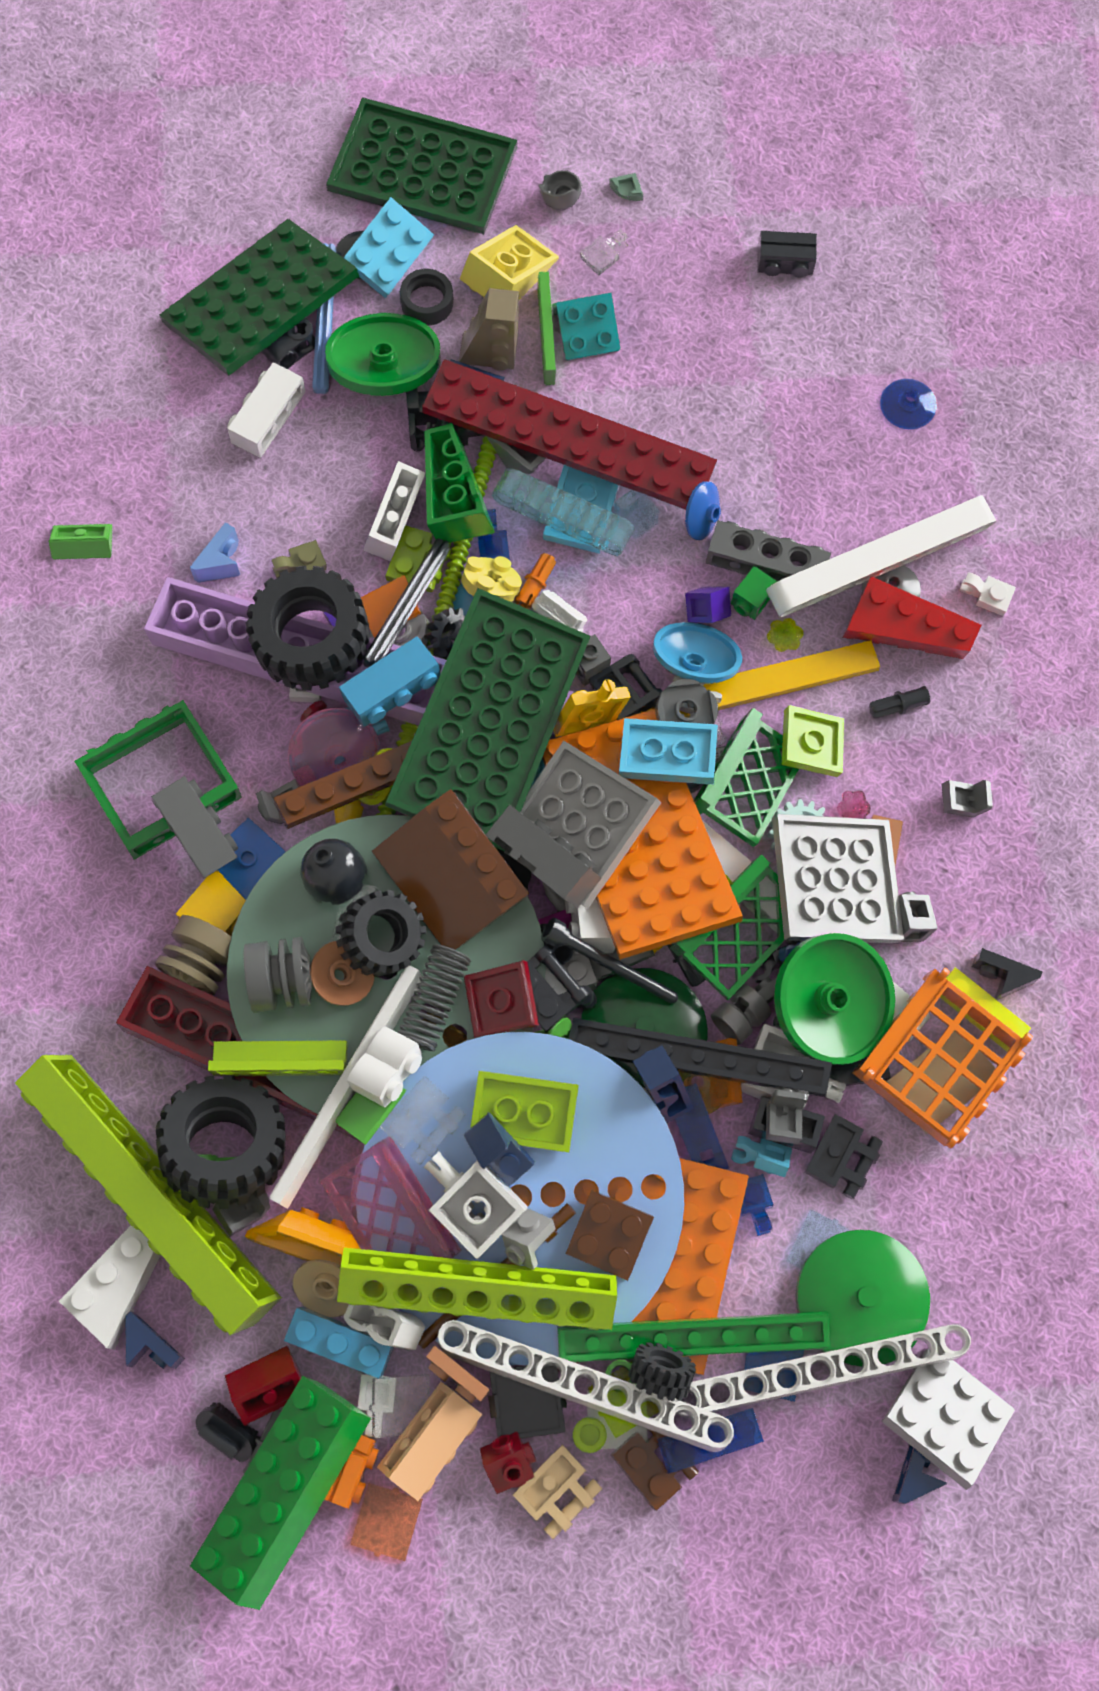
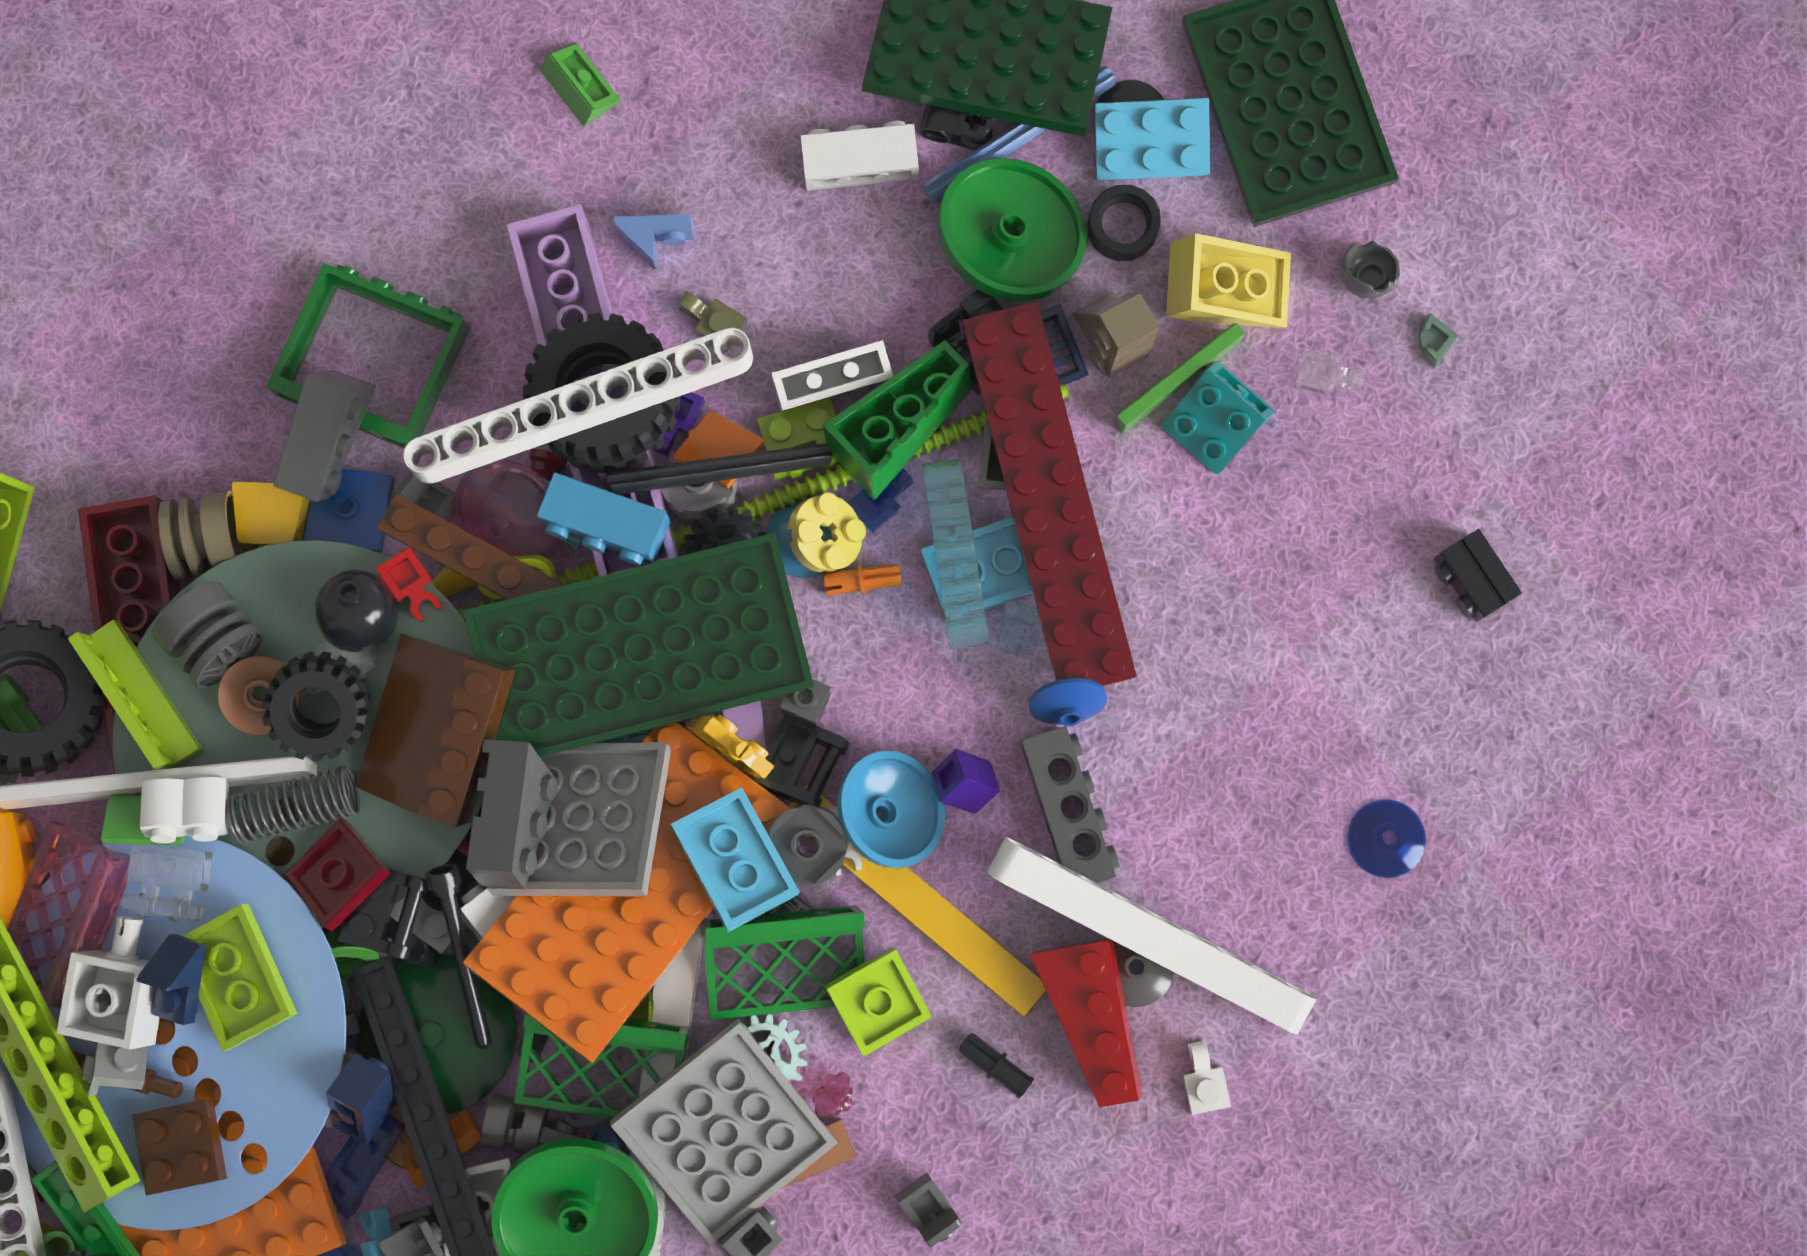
camera: 60 degrees right, 10 degrees up
(315, 642) = (560, 400): none -> white beam
(336, 825) = (407, 578): none -> red plate
(557, 609) = (837, 631): white piece -> none
(751, 594) = (1011, 820): green brick -> none
(785, 639) = (990, 898): clear neon green plant -> none

